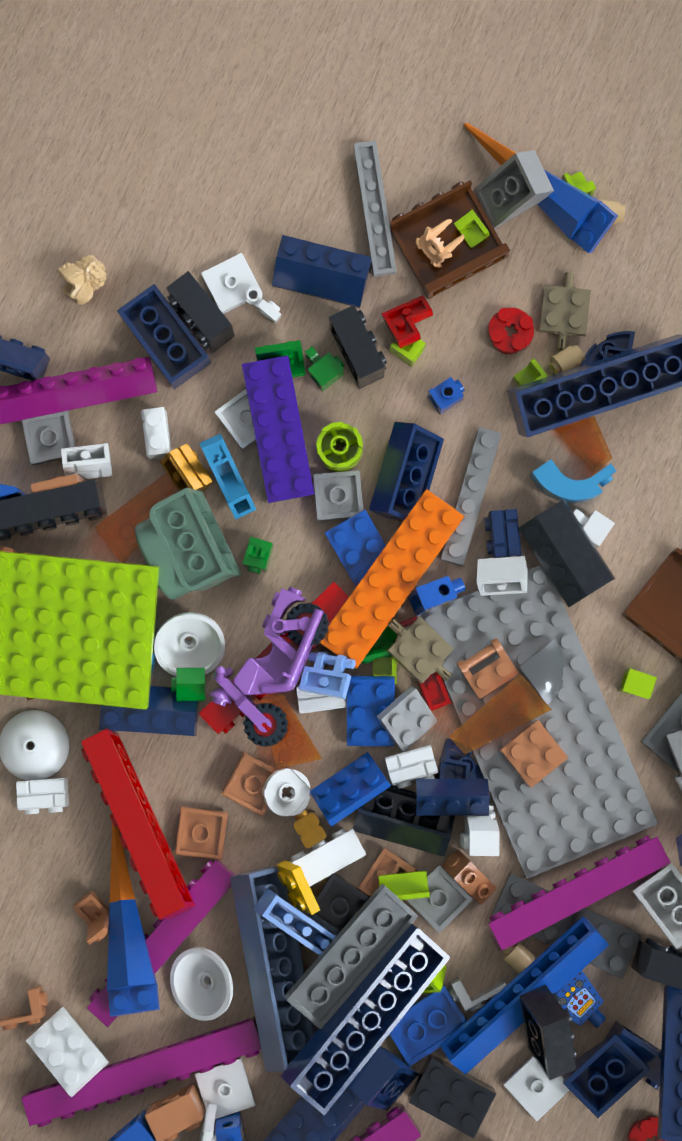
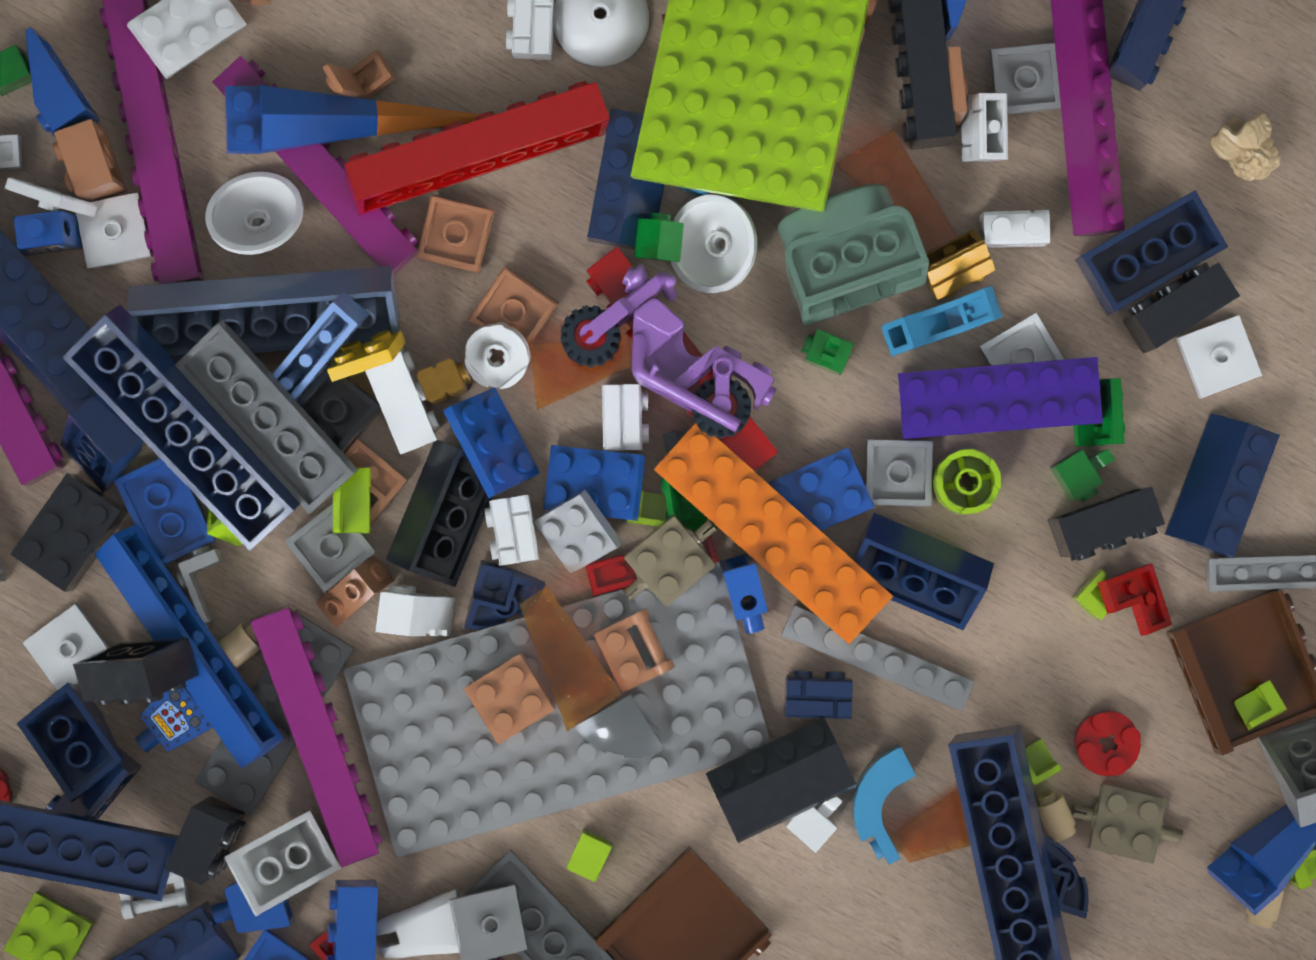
camera: 90 degrees right, 5 degrees up
(268, 309) = (1174, 405): white plate -> none
(327, 682) = (639, 425): light blue plate -> none
(430, 237) = (1248, 641): light nougat piece -> none
(443, 402) = (1015, 633): blue brick -> none
(452, 797) = (463, 580): dark blue brick -> none
(502, 575) = (760, 686): white brick -> none

